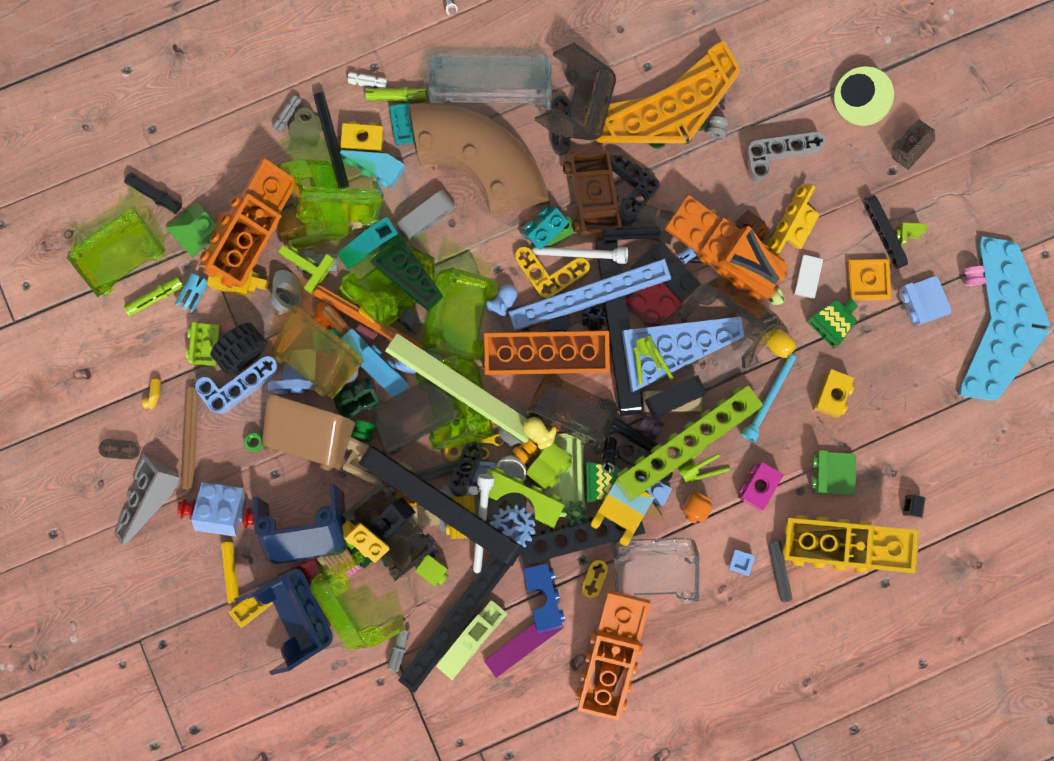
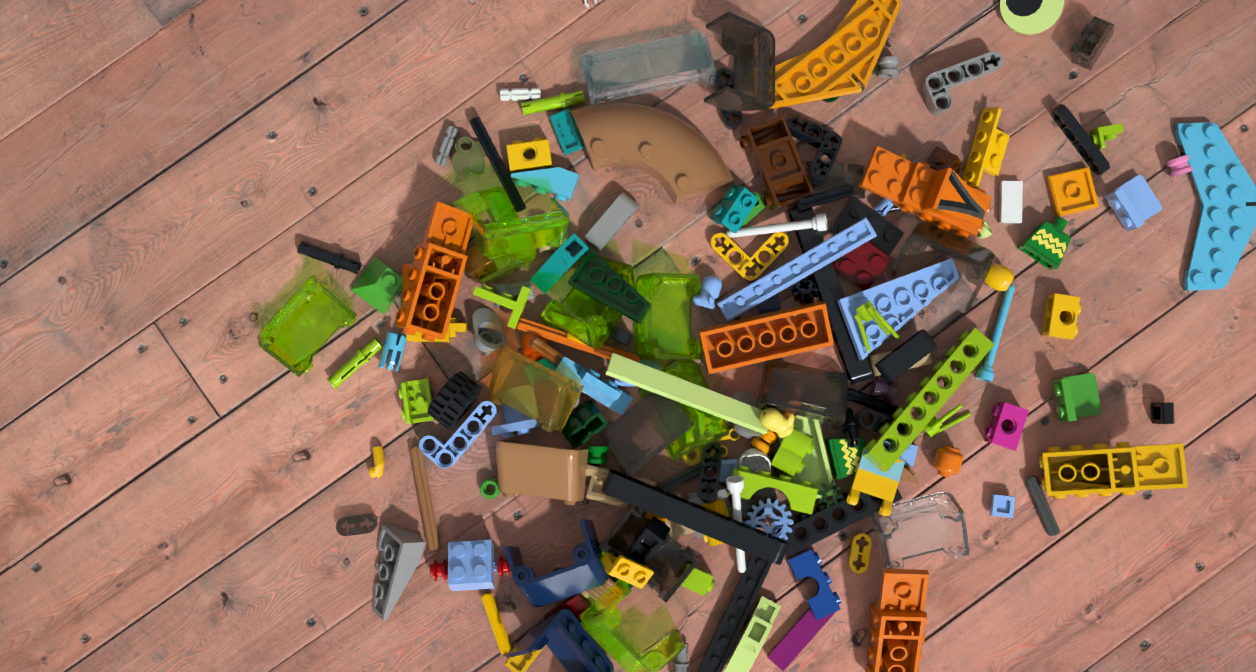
camera: 10 degrees left, 5 degrees up
(368, 335) = (579, 357): bright pink tile -> none

